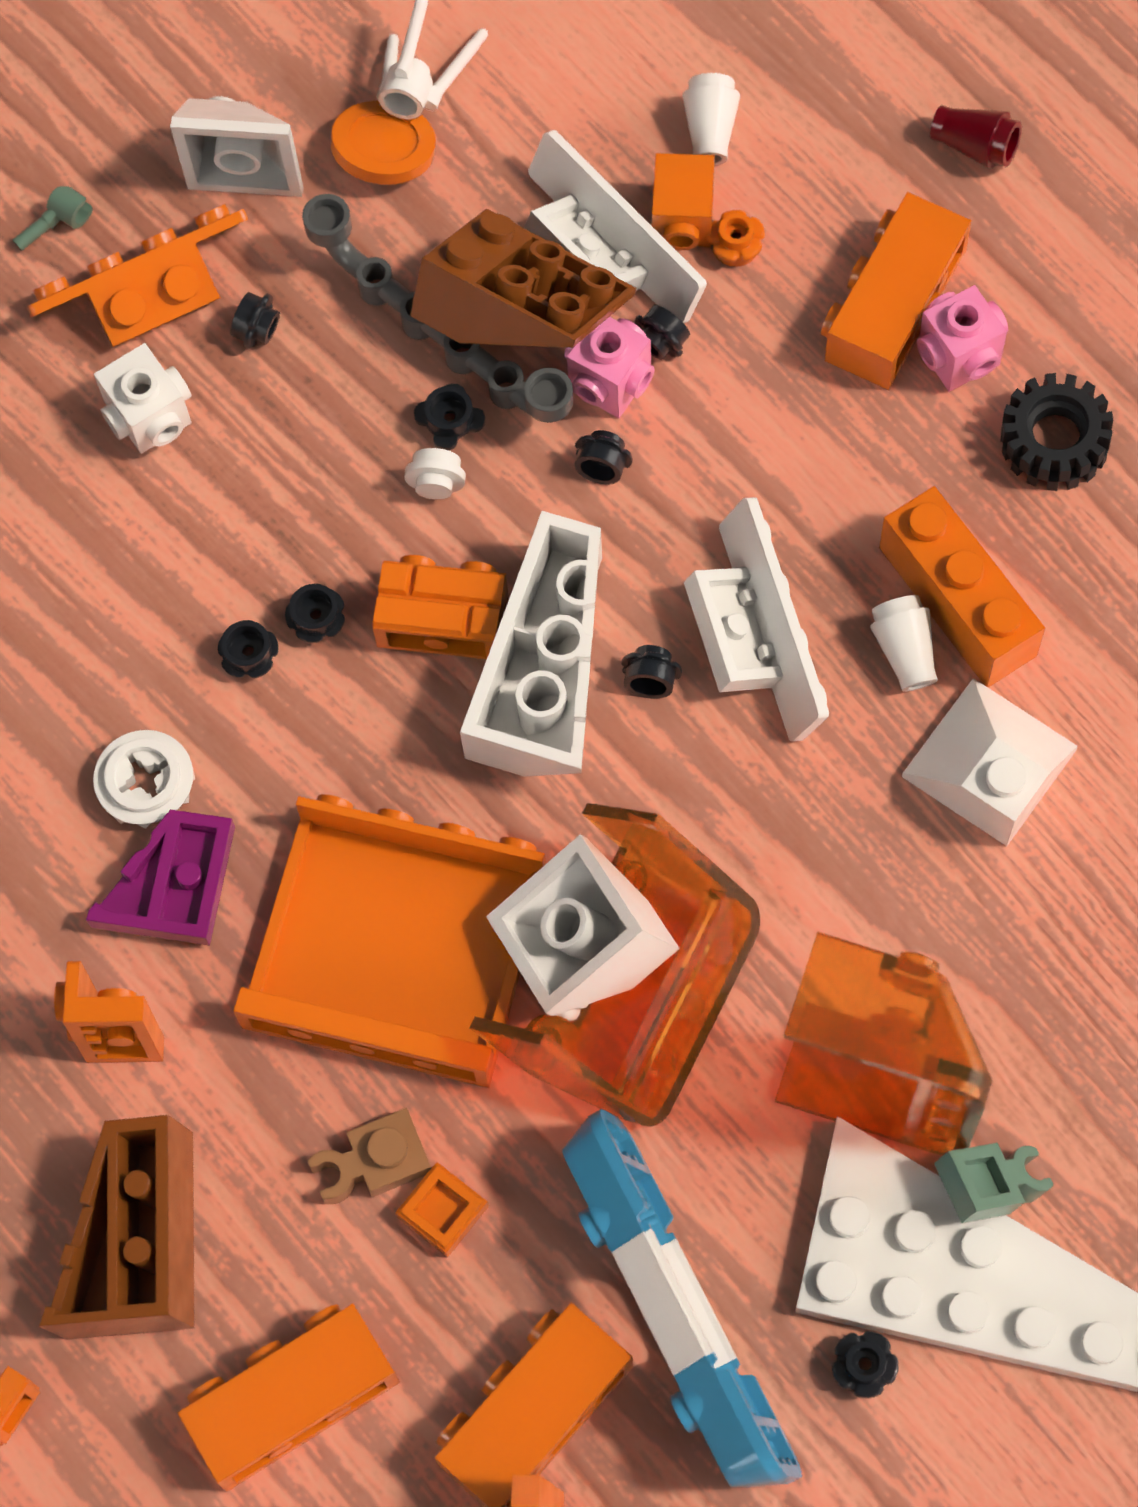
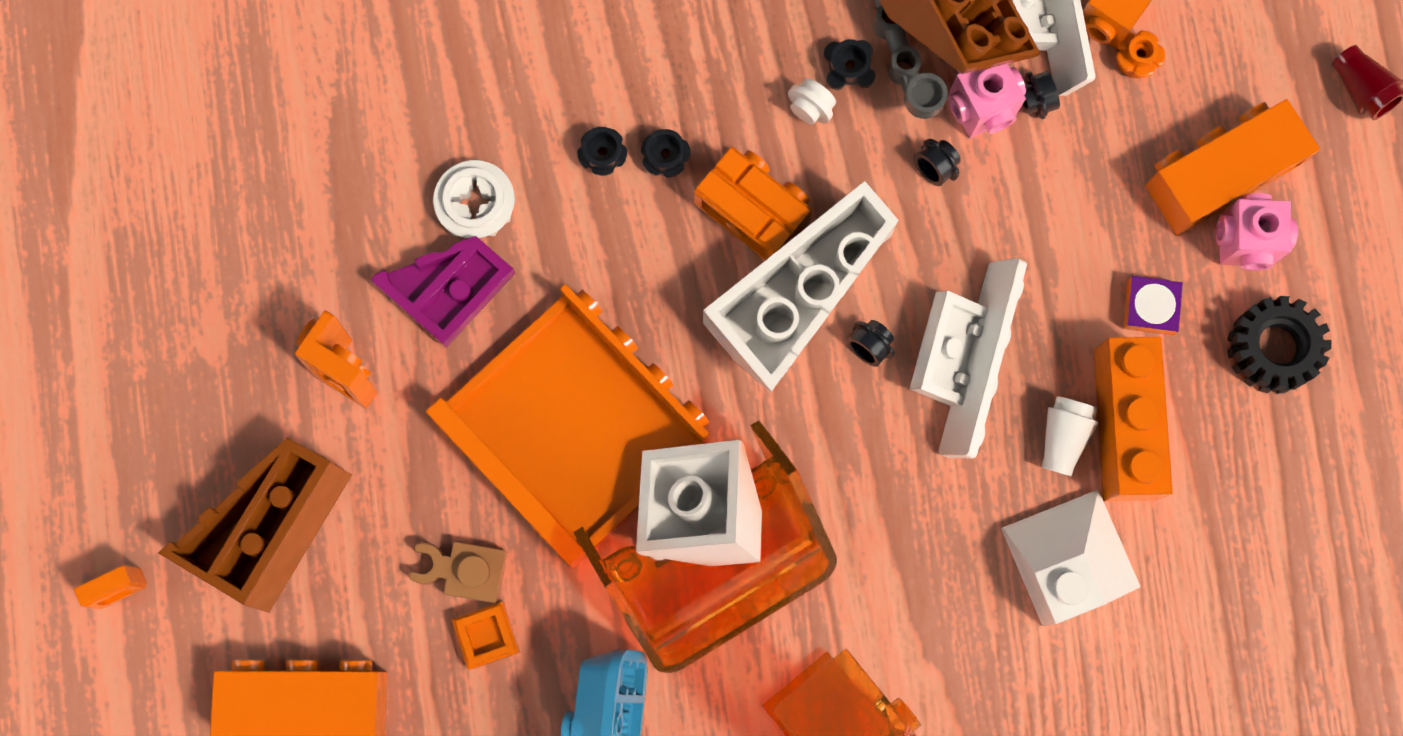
camera: 25 degrees right, 10 degrees up
(908, 467) = (1152, 305): none -> tile

